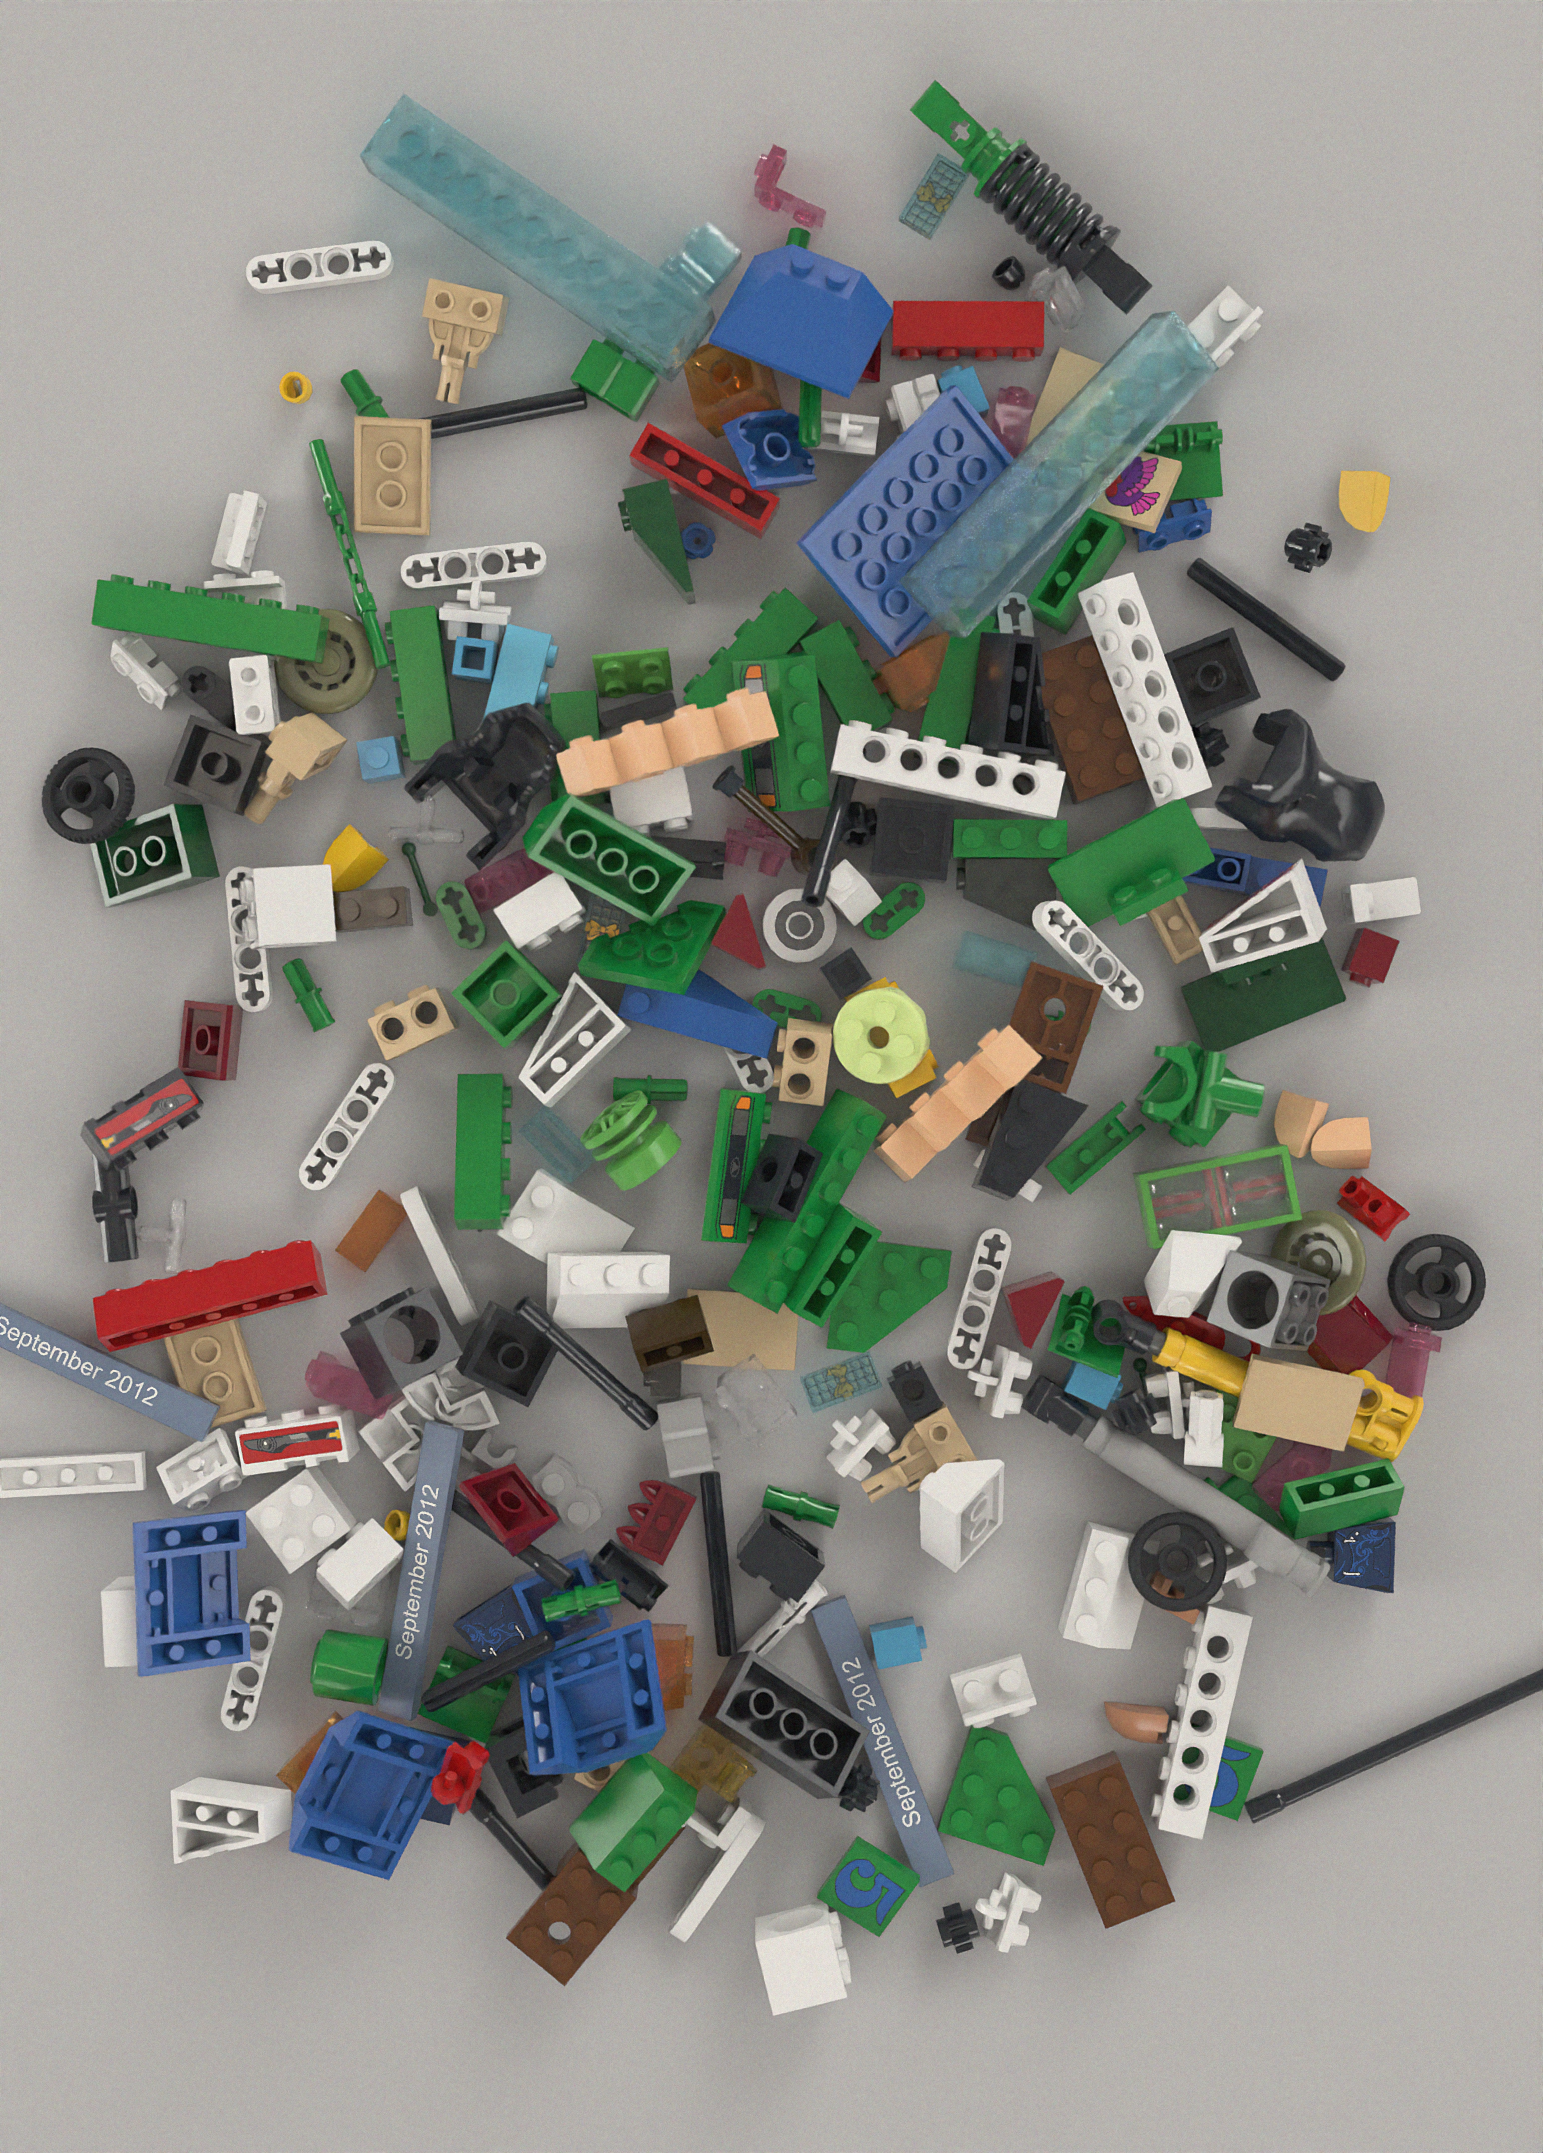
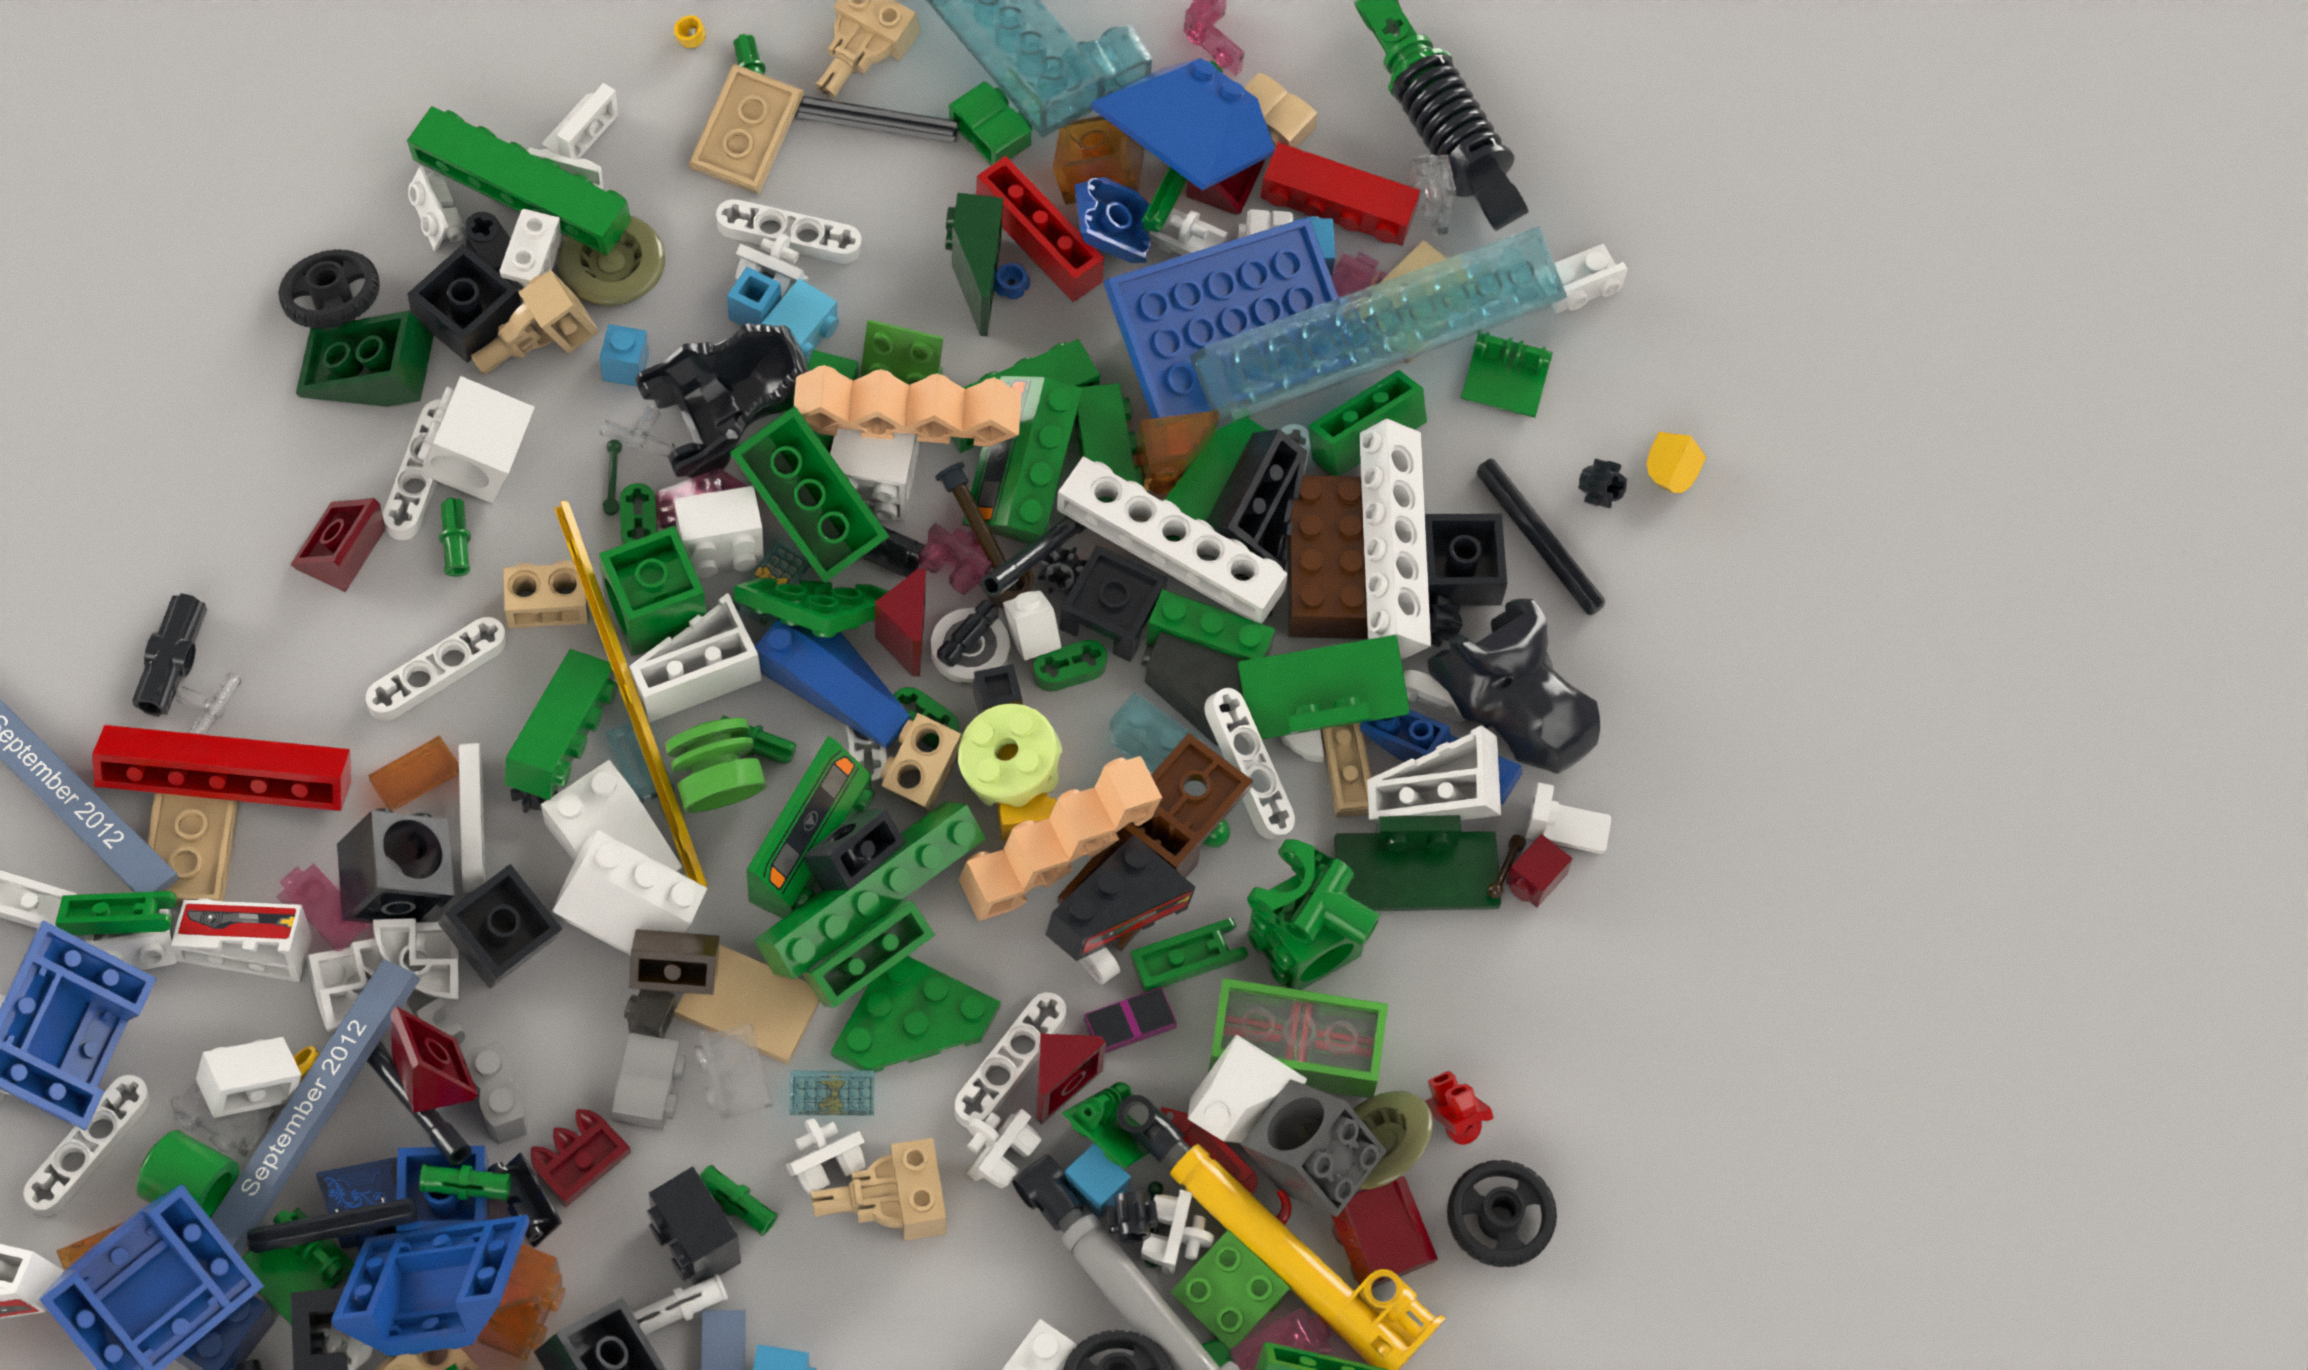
camera: 15 degrees right, 25 degrees down
(142, 1120) = (235, 576): wedge -> none
(182, 1467) = (115, 913): none -> green hinge
(301, 1518) = (206, 1011): white brick -> none
(352, 860) = (555, 435): yellow brick -> none
(363, 601) = (671, 217): green piece -> none
(372, 909) = (551, 477): dark brown brick -> none
(422, 680) = (696, 294): green brick -> none
(460, 1775) = (250, 1309): red hips -> none
(525, 1095) = (629, 694): none -> yellow piece
(543, 1324) = (550, 898): black piece -> none
(718, 1563) = (626, 1220): black axle -> none
(793, 925) = (967, 633): none -> black axle
(881, 260) = (1285, 114): none -> tan brick
(920, 1405) = (904, 1102): black brick -> none
(933, 196) = (1351, 84): clear light blue tile -> none
(960, 1509) = (907, 1241): white slope -> none
(1009, 273) = (1397, 167): black hinge -> none
(1066, 1224) = (1131, 1019): none -> black tile
(1140, 492) = (1453, 374): tile -> none
(1188, 522) = (1480, 426): blue hinge -> none
(1204, 1436) = (1194, 1271): white piece -> none
(1298, 1121) = (1413, 1003): light nougat brick -> none
(1298, 1402) = (1308, 1261): tan tile -> none
(1339, 931) = (1516, 845): none -> dark brown hinge
(1343, 1144) = (1448, 1043): light nougat brick -> none
(1410, 1358) = (1450, 1279): clear pink bracket -> none

